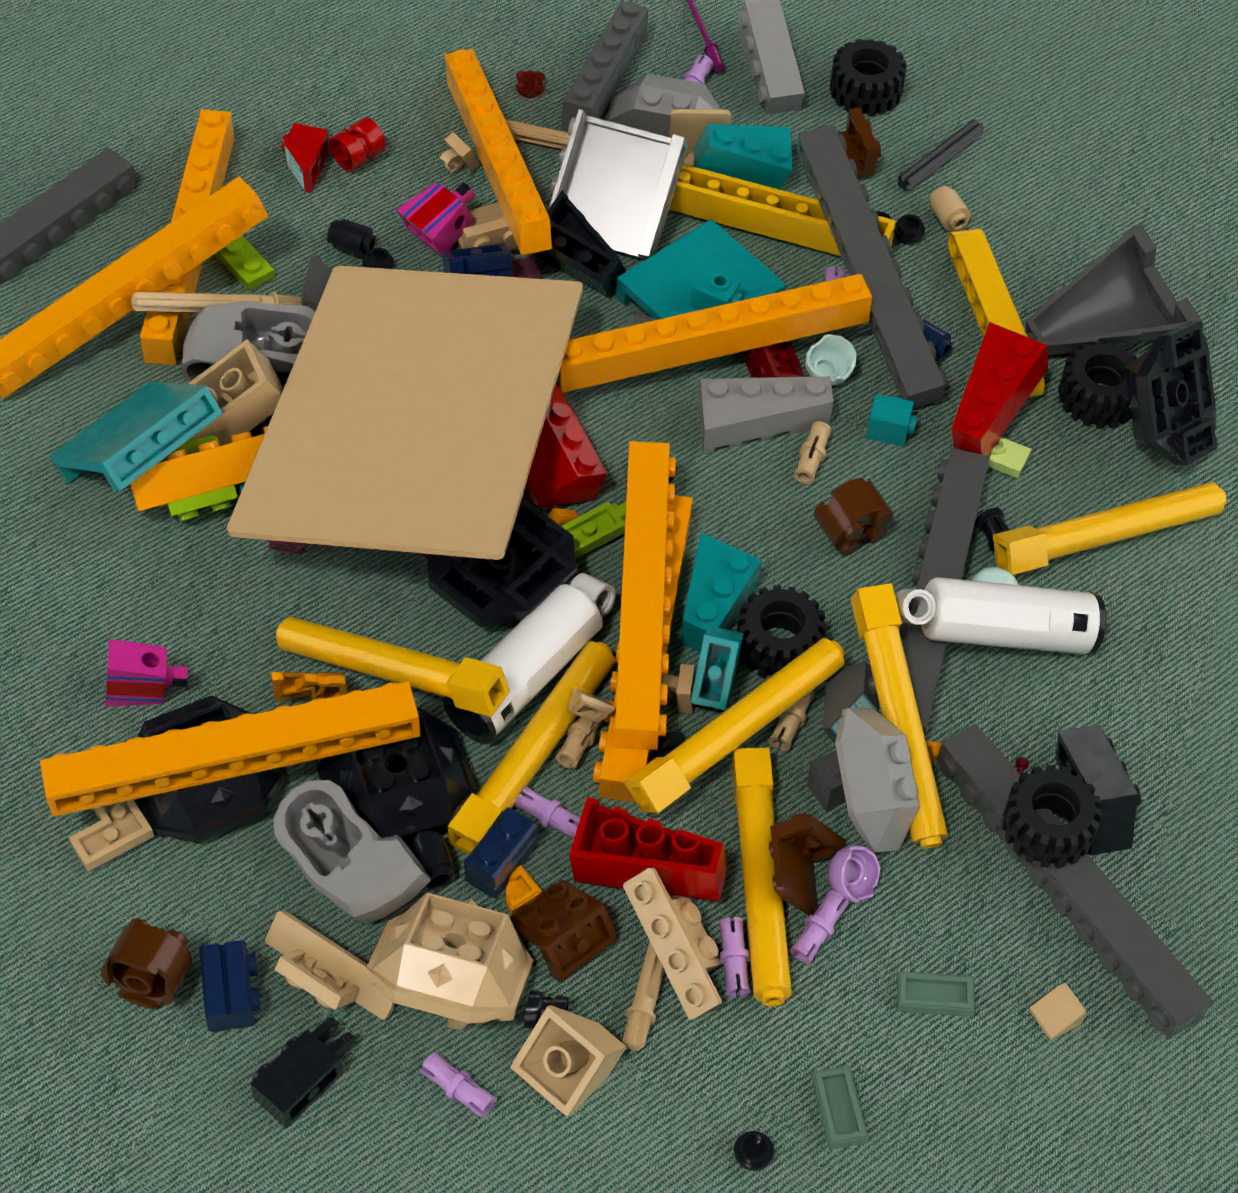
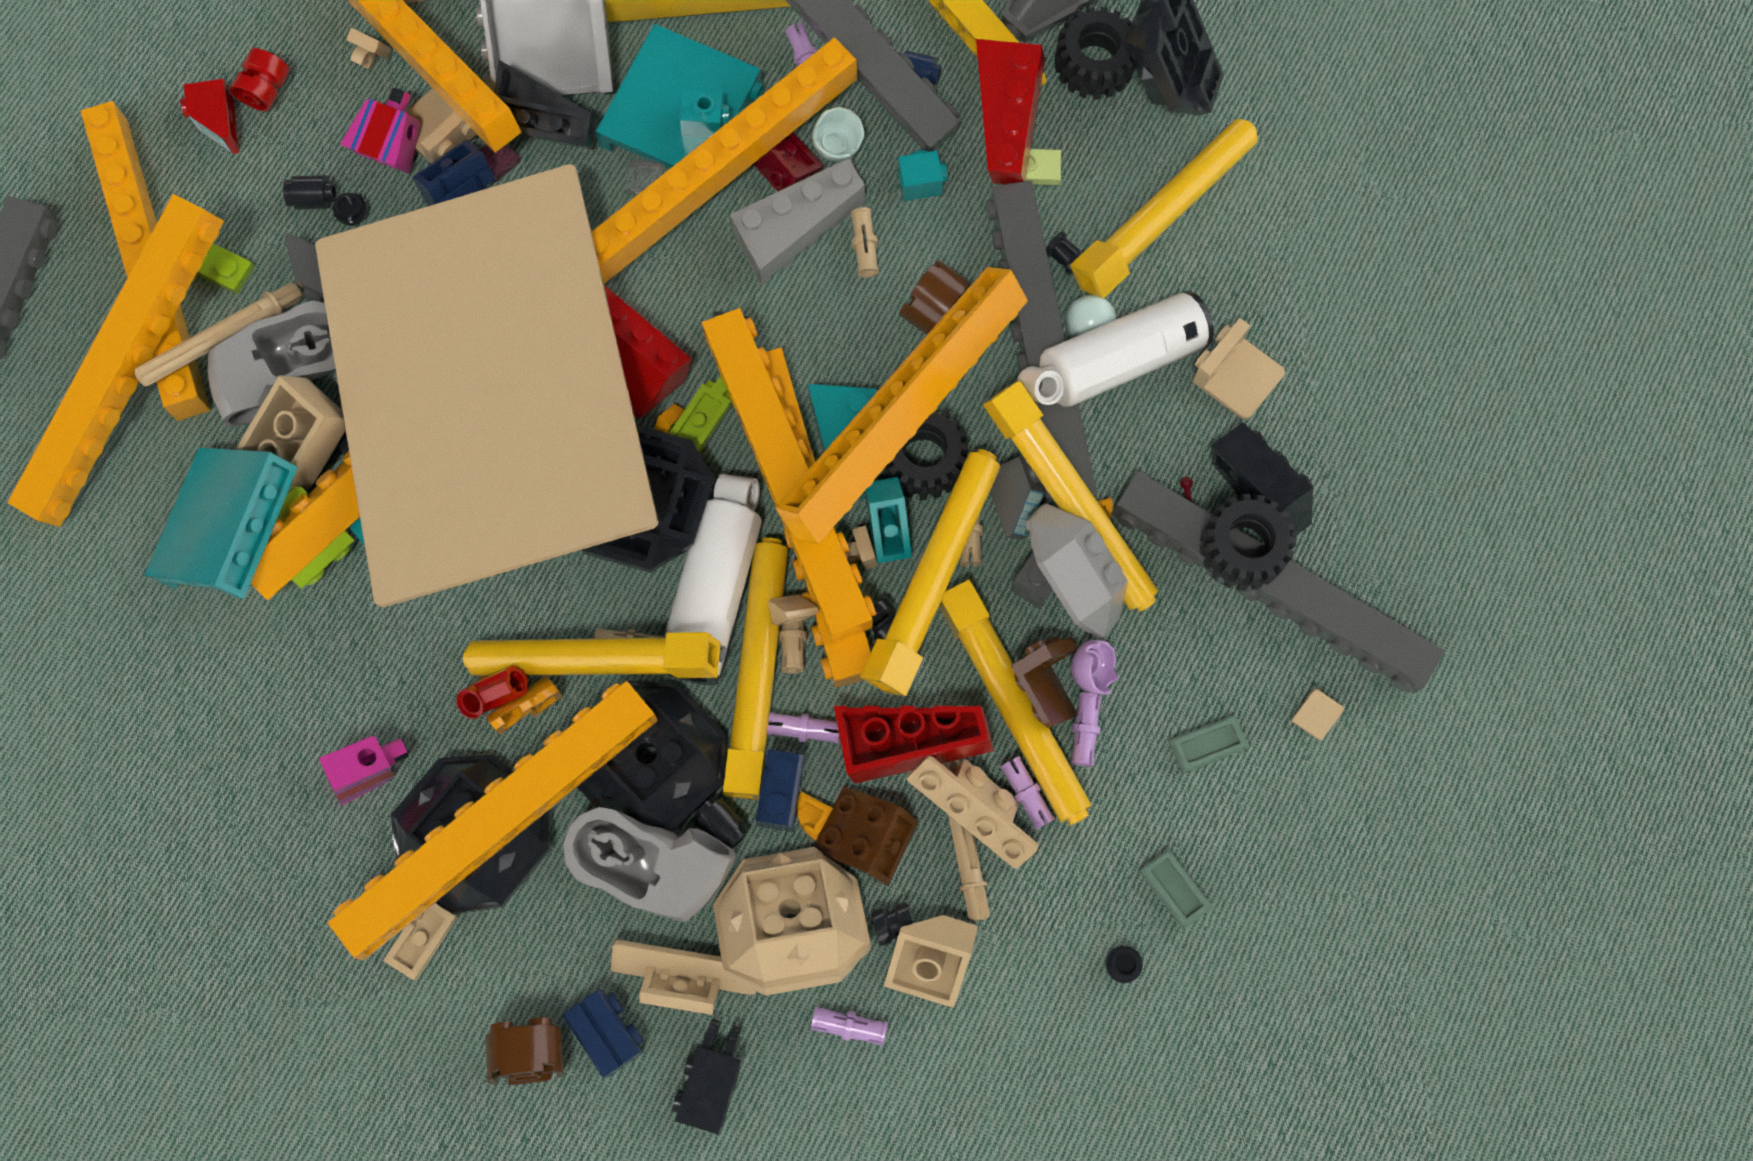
camera: 25 degrees left, 20 degrees up
(293, 657) = (492, 692): none -> red piece
(775, 570) = (901, 405): none -> light orange brick
(1114, 685) = (1237, 372): none -> tan bracket

